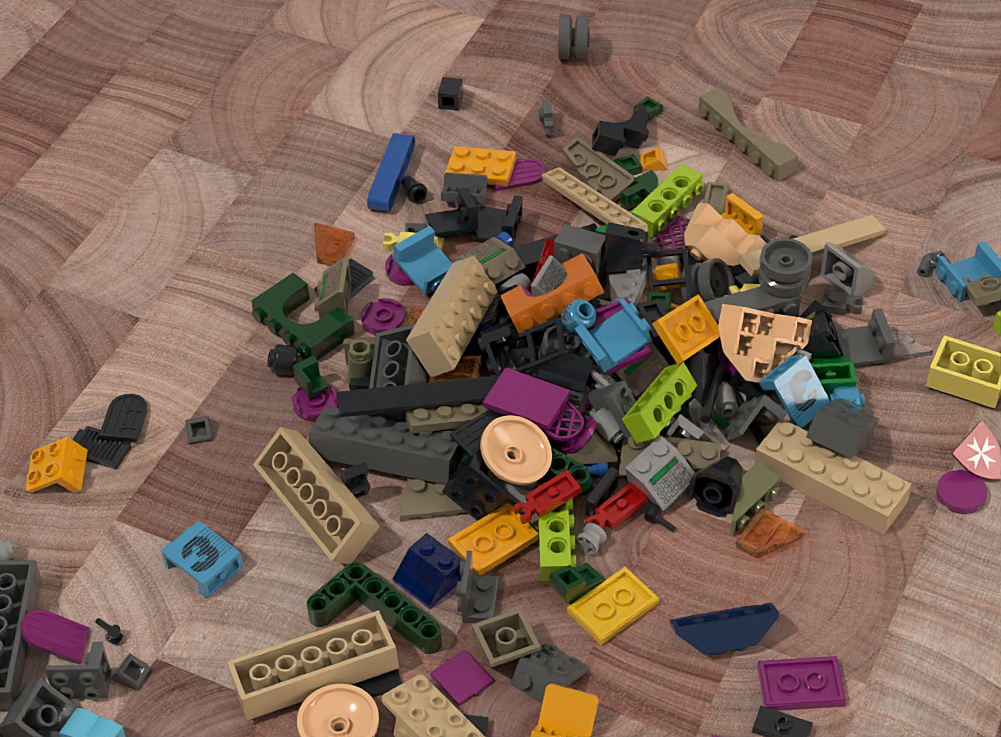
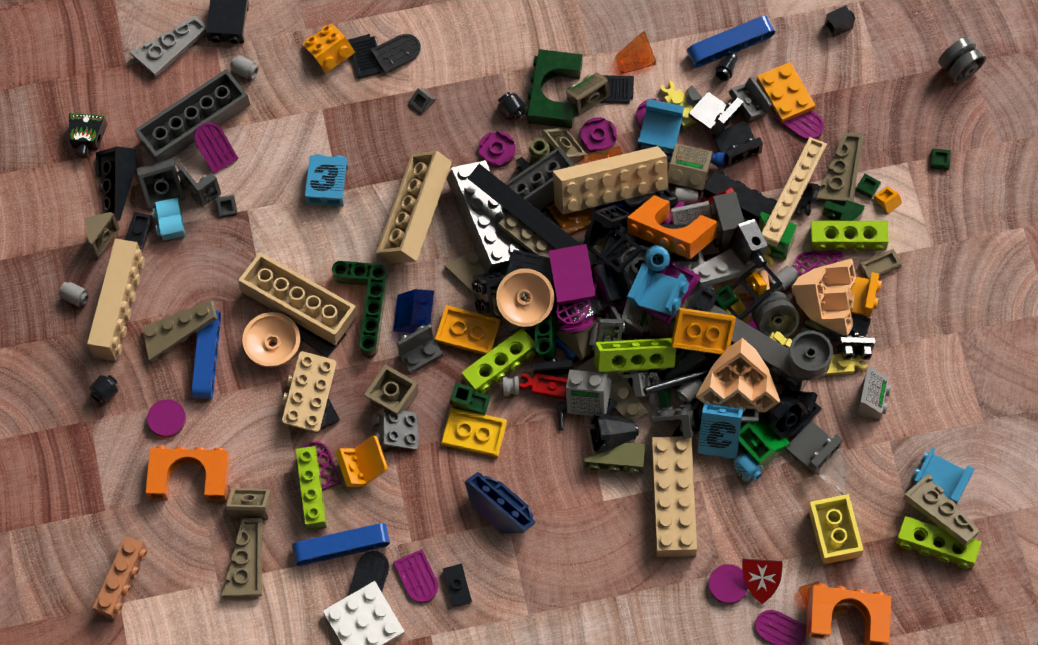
camera: 55 degrees right, 20 degrees up
(113, 632) = (243, 175): black hand -> none
(309, 377) = (505, 133): dark green panel -> none
(356, 480) = (441, 222): black slope -> none
(461, 677) = (356, 383): magenta piece -> none
(545, 115) = (870, 98): dark grey plate -> none
(548, 496) = (512, 340): red plate -> none
(611, 136) = (875, 157): black arch -> none
(767, 534) = (596, 487): clear orange wing -> none
(772, 157) = (954, 275): dark tan arch -> none
(801, 683) = (498, 576): magenta tile -> none
(838, 302) = (843, 407): dark grey plate -> none
(840, 235) = (881, 360): tan tile -> none
(843, 427) = (709, 479): dark grey brick -> none
(929, 261) = (939, 445): dark grey arm -> none

